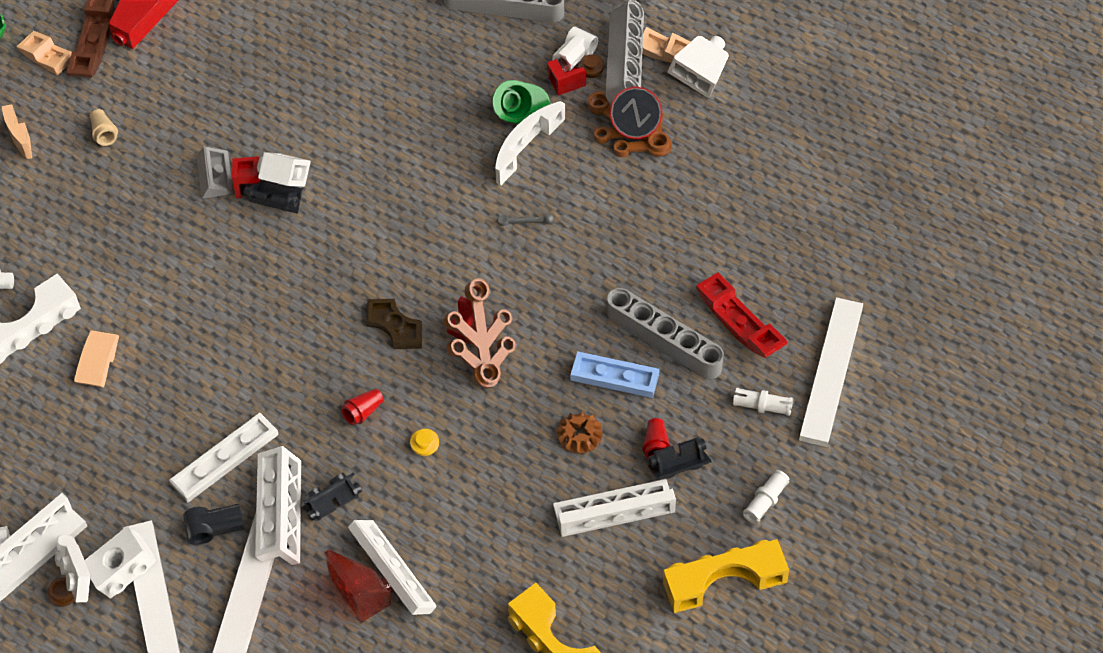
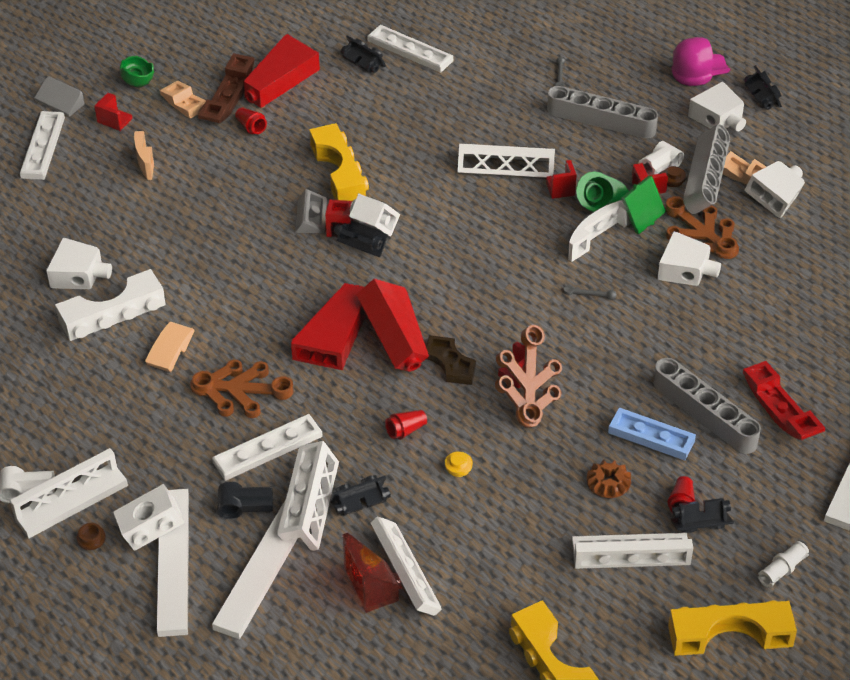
camera: 10 degrees right, 10 degrees down
(73, 566) = (105, 514): white hinge -> none
(103, 130) = (219, 164): tan cone -> none
(126, 69) = (251, 120): none -> red cone
(179, 393) = (209, 384): none -> dark orange plant
(219, 88) = (331, 146): none -> yellow arch
(266, 310) = (332, 331): none -> red slope
(330, 295) = (395, 323): none -> red slope
(408, 66) = (503, 153): none -> white fence
(476, 94) = (563, 184): none -> red panel
(565, 109) = (643, 204): none -> green piece
(620, 168) = (686, 261): none -> white torso
(635, 113) = (708, 216): black tile -> none
(763, 401) = (793, 479): white pin -> none

